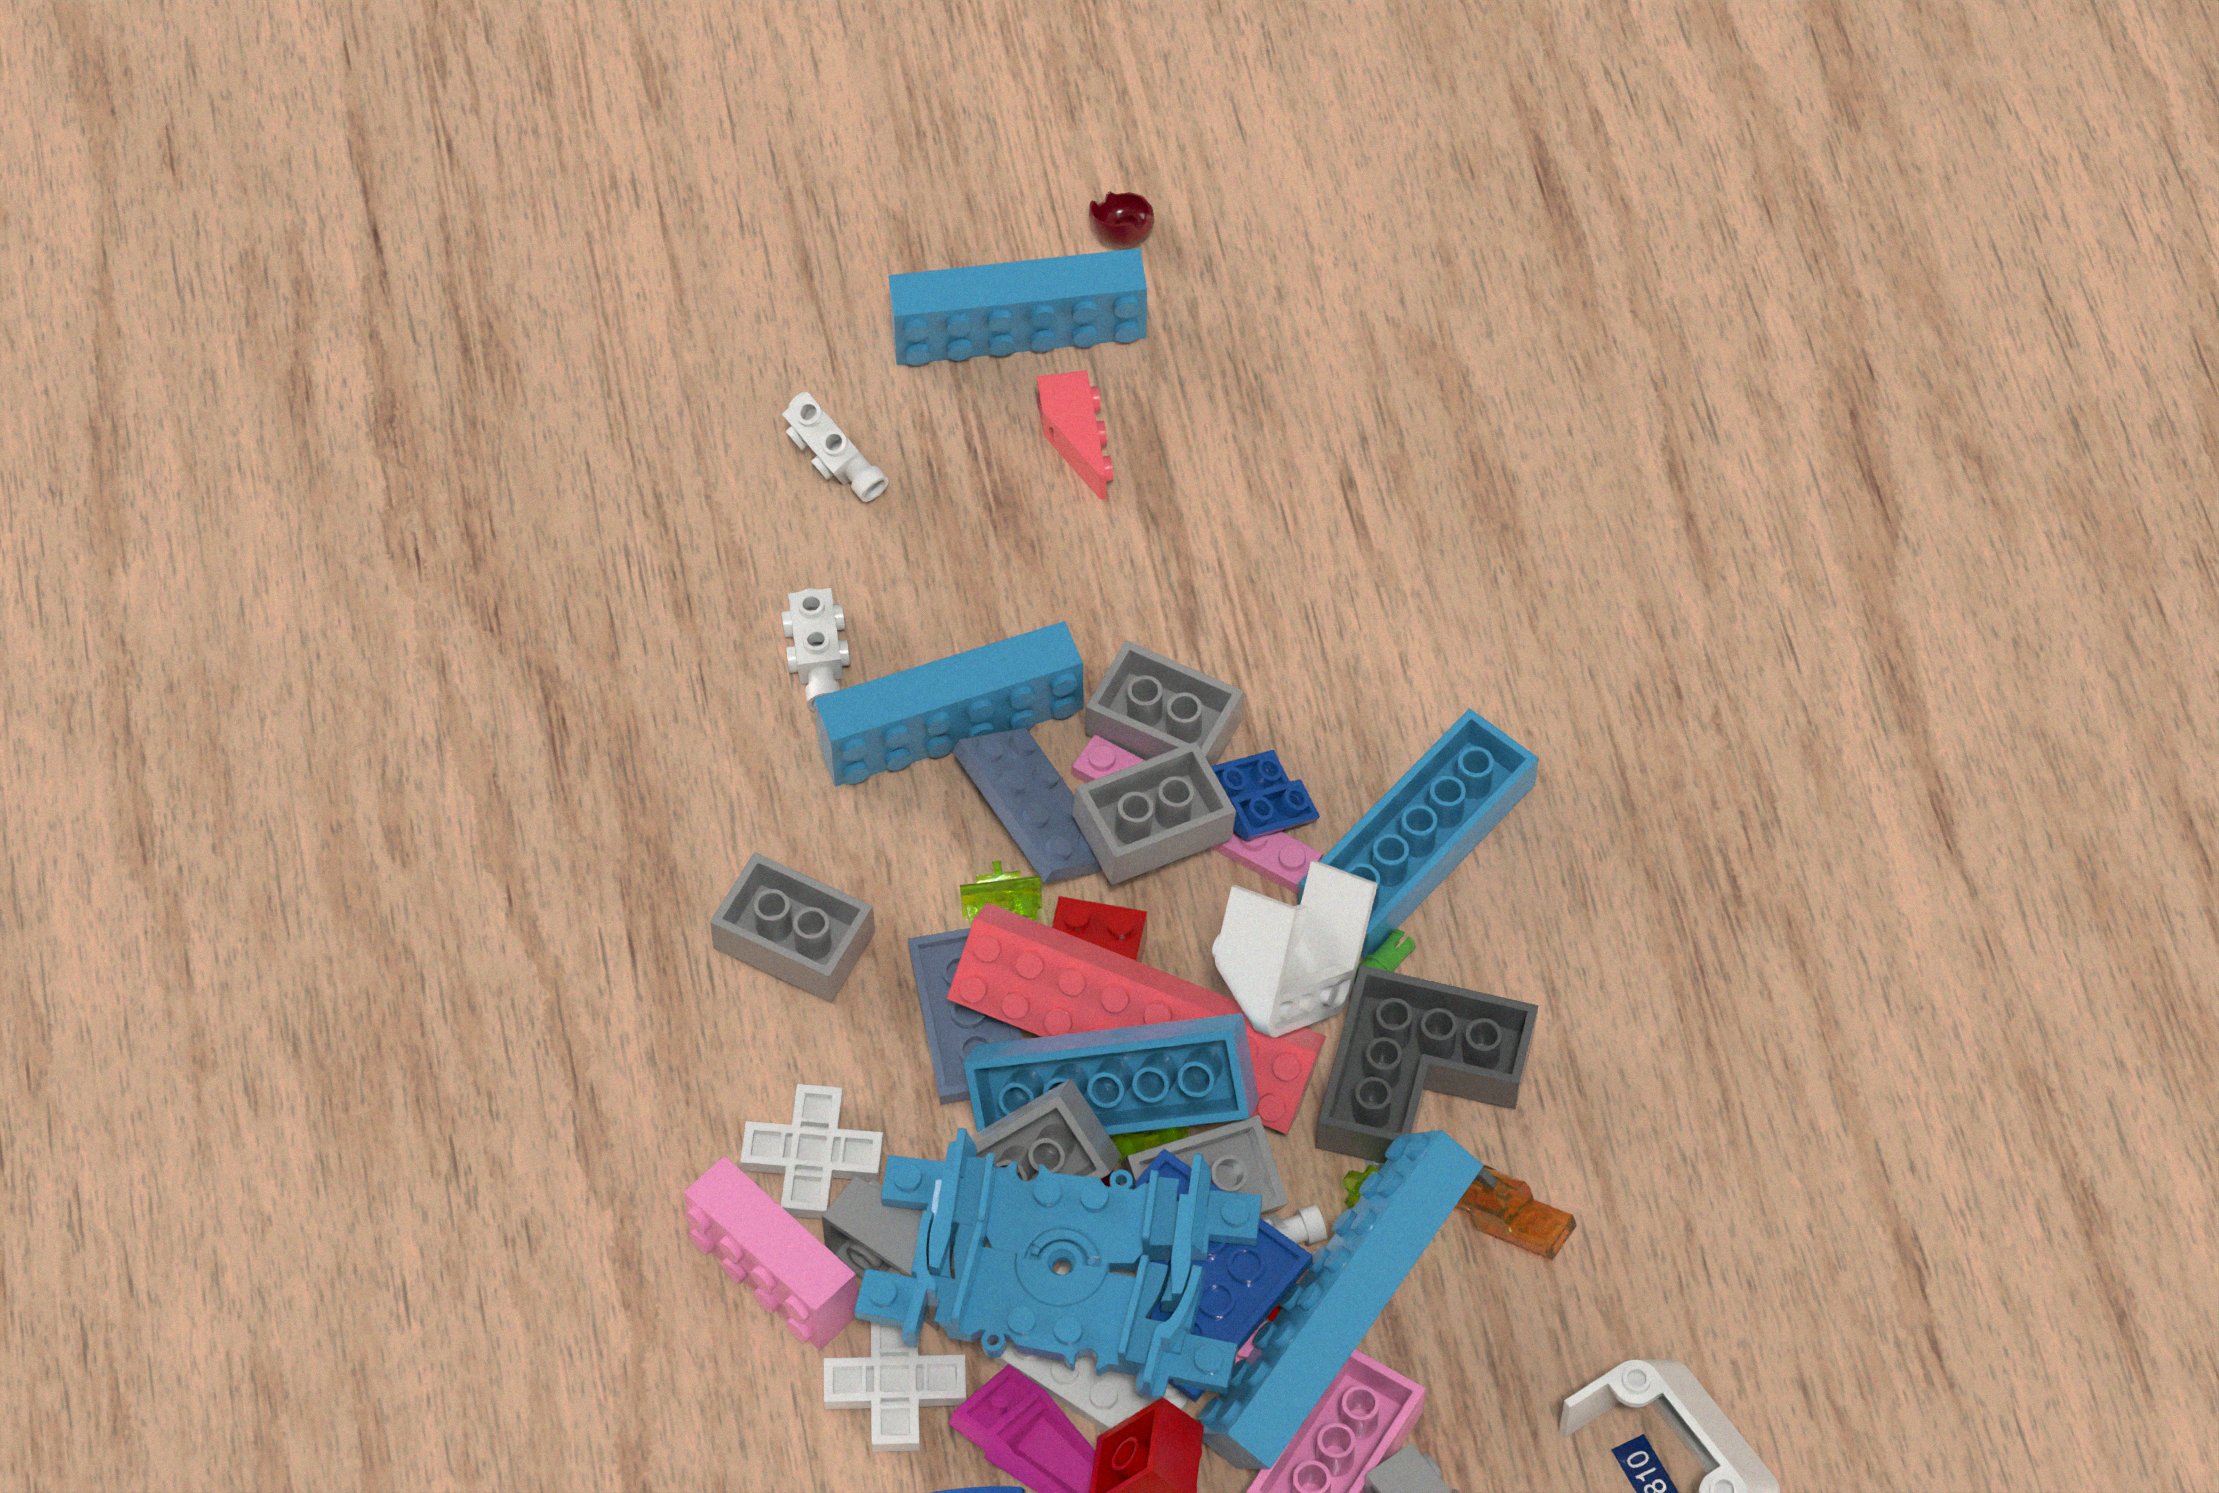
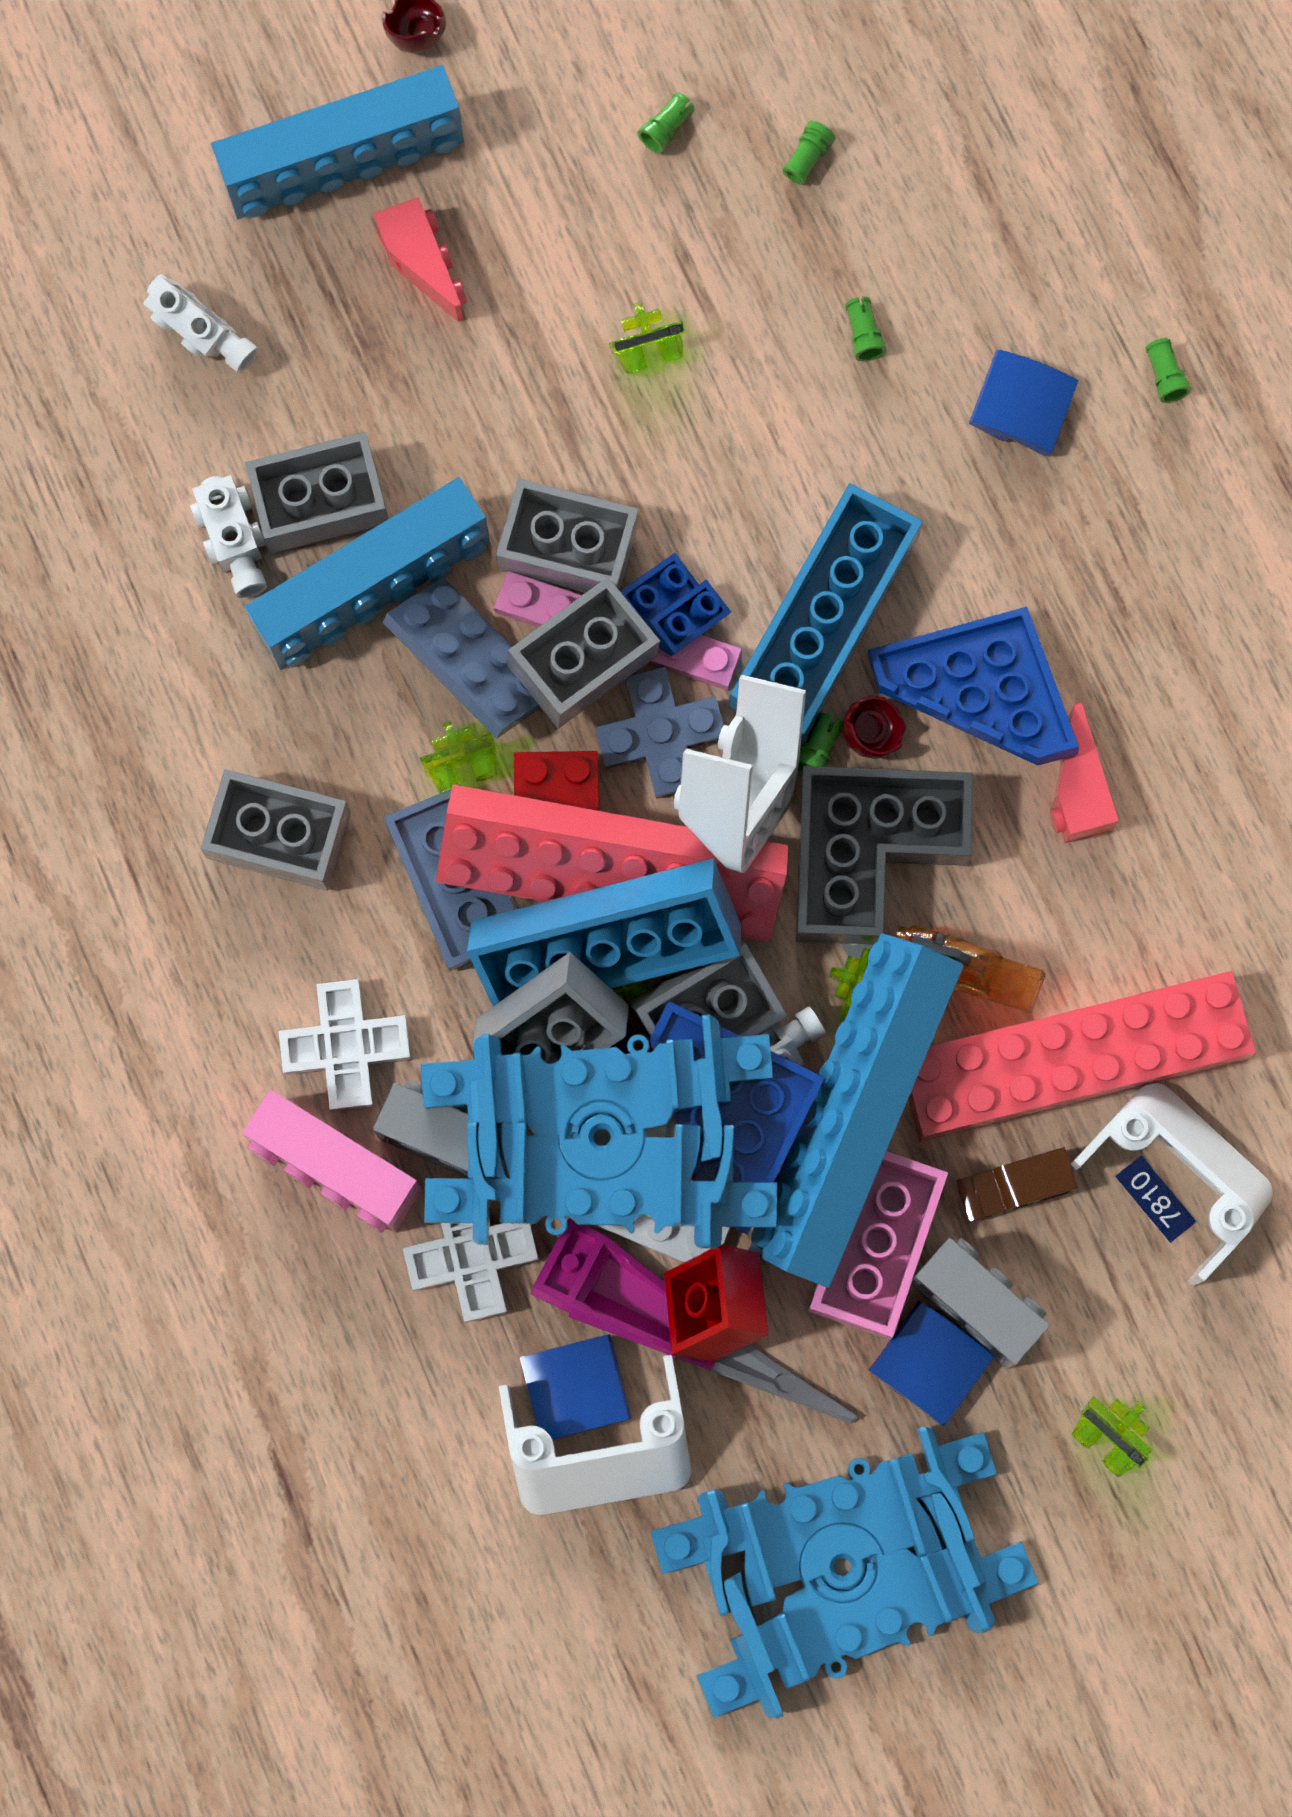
camera: 10 degrees left, 20 degrees up
(912, 618) = (317, 492): none -> light grey brick
(1201, 915) = (659, 730): none -> sand blue plate
(1273, 548) = (630, 348): none -> clear neon green hips
(1350, 359) = (660, 129): none -> bright green pin
(1444, 952) = (873, 727): none -> dark red hair
(1502, 1430) = (1017, 1184): none -> reddish brown piece
(1505, 402) = (813, 144): none -> bright green pin
(1521, 588) = (867, 338): none -> bright green pin
(1570, 928) = (983, 681): none -> blue plate
(1591, 1313) = (1080, 1056): none -> coral brick
(1654, 1060) = (1082, 794): none -> coral slope
(1672, 677) = (1023, 401): none -> blue slope
(1833, 685) = (1170, 380): none -> bright green pin

